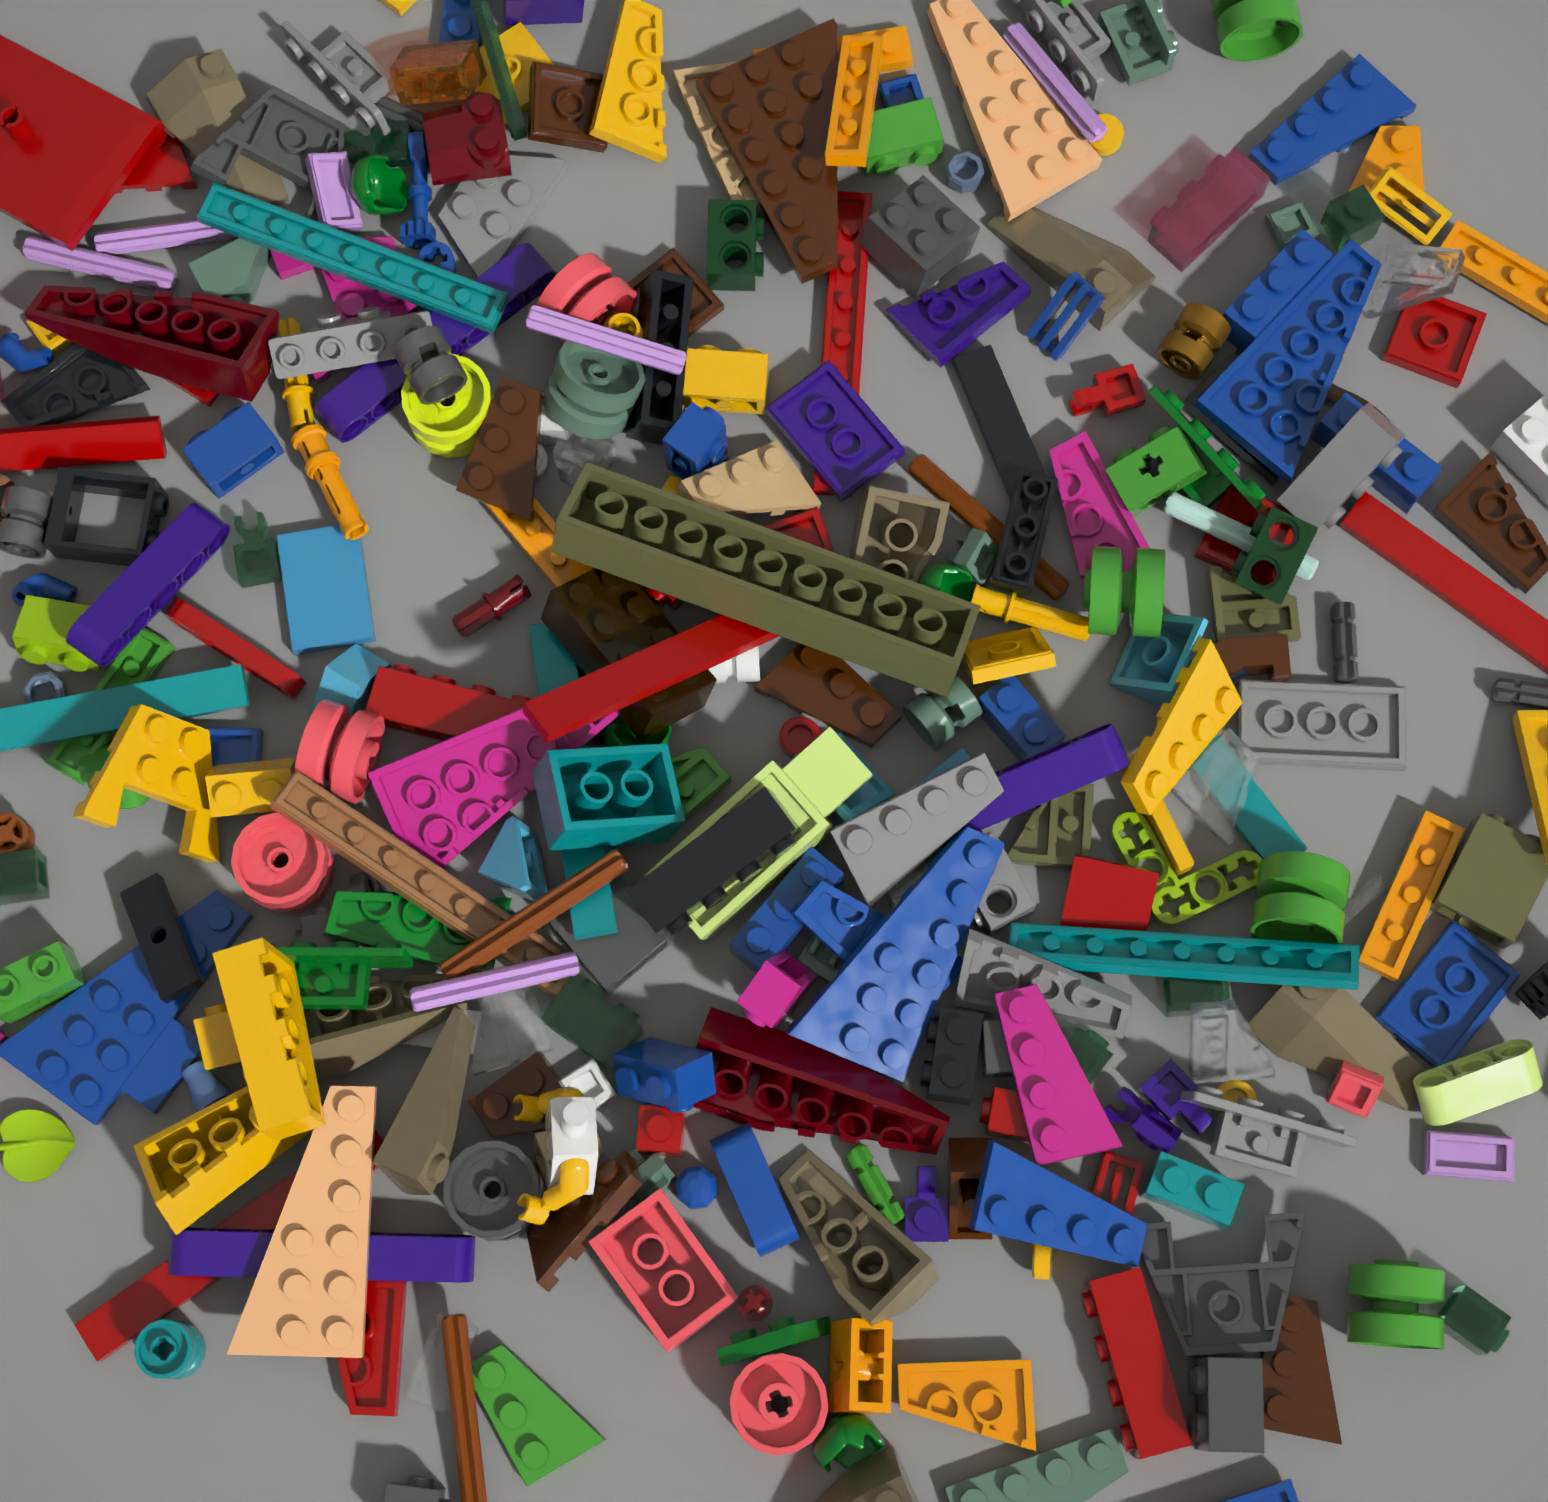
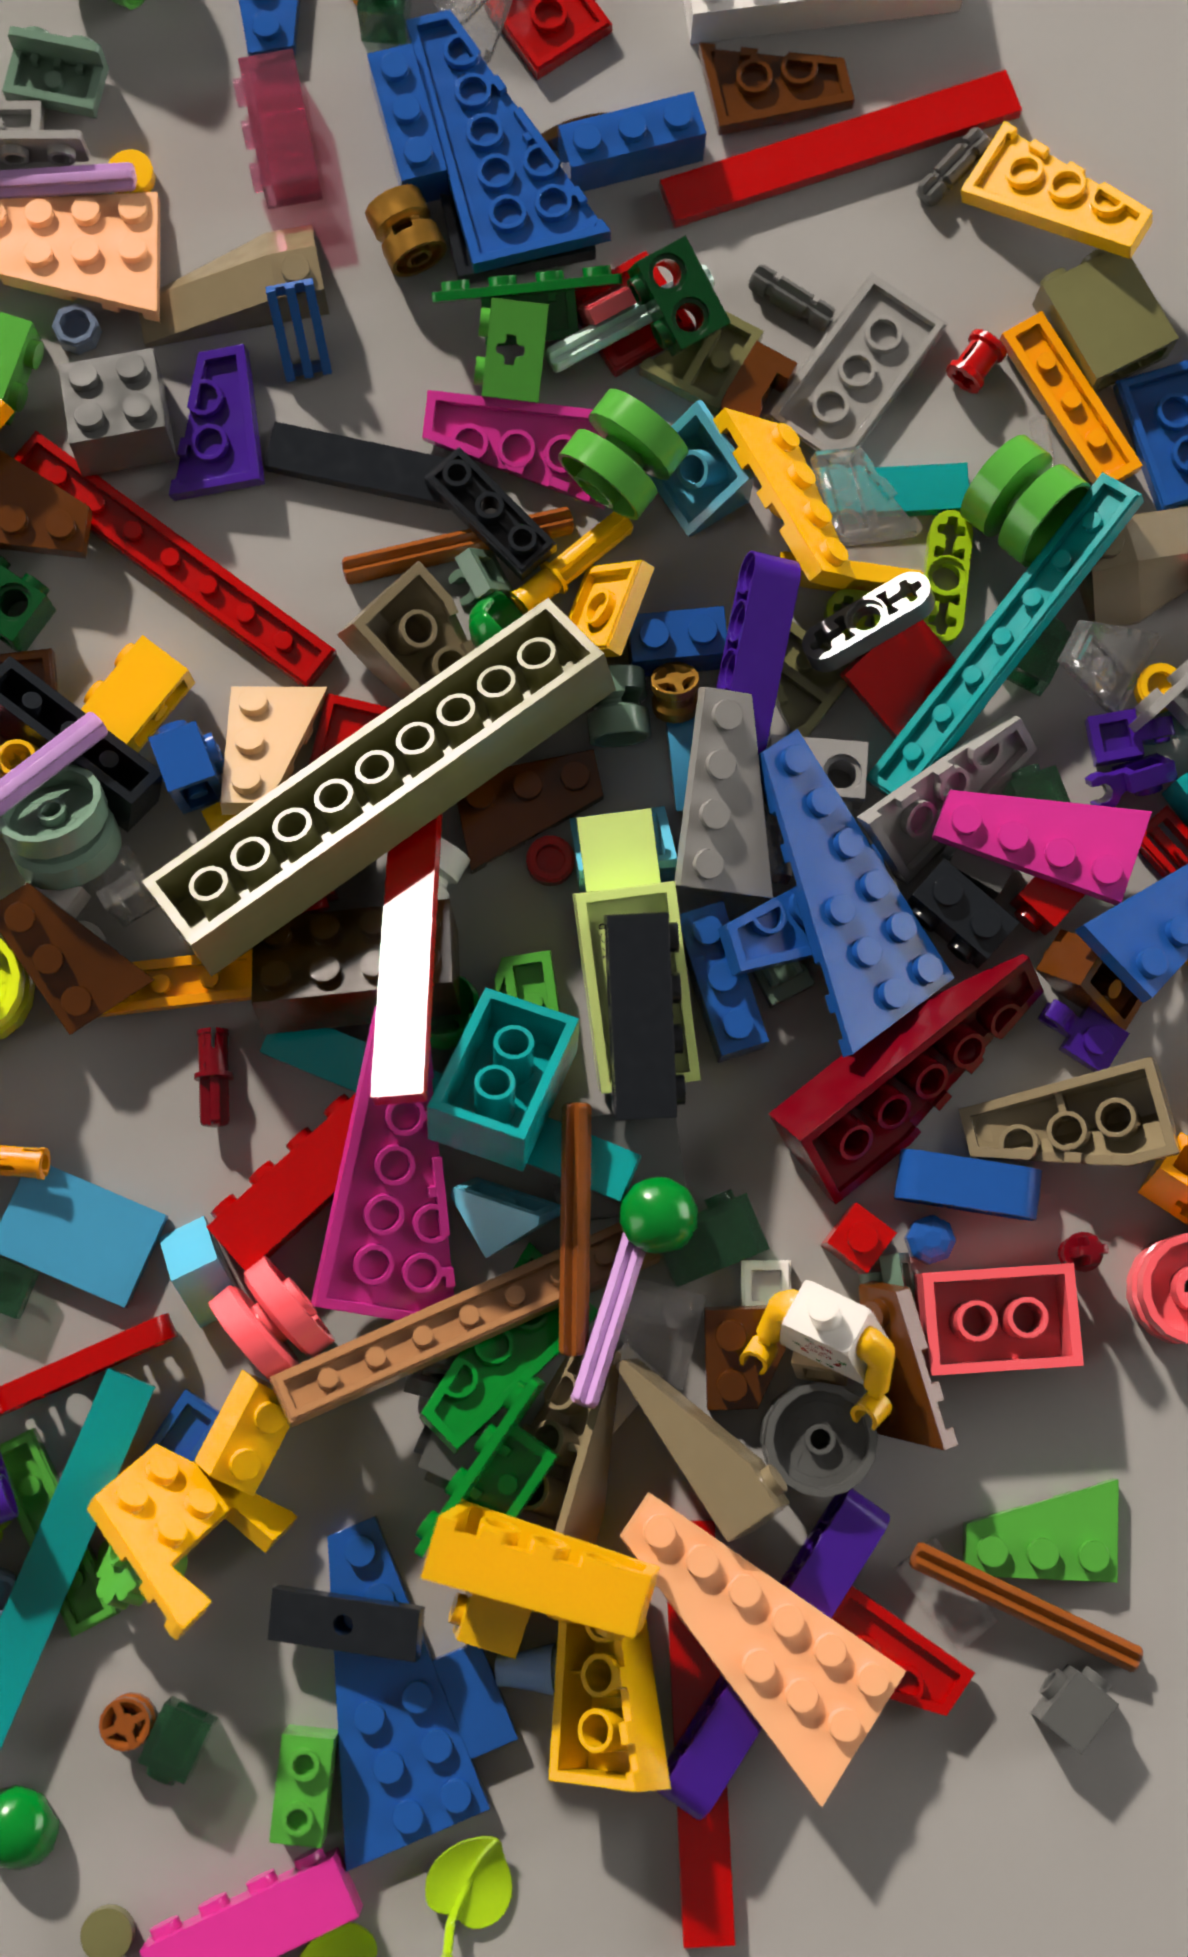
camera: 65 degrees left, 5 degrees up
(169, 1349) = (773, 1863): teal wheel -> none
(260, 871) = (353, 1483): coral wheel -> none
(582, 971) = (658, 1215): none -> green hair
(664, 1074) = (811, 1198): blue brick -> none
(776, 989) = (798, 1038): dark pink brick -> none
(782, 1335) = (1127, 1257): green wing -> none
(835, 431) = (262, 625): dark purple tile -> none
(874, 1183) = (1031, 1067): bright green axle -> none
(980, 736) = (674, 692): none -> pearl gold wheel
(1113, 390) = (403, 339): red plate -> none
(1133, 863) = (875, 602): none -> dark grey beam
(1236, 511) = (606, 305): none -> coral tile
(1288, 222) = (347, 68): sand green tile -> none
(1343, 468) = (634, 177): light grey brick -> none
(1391, 805) = (976, 361): none -> red bush

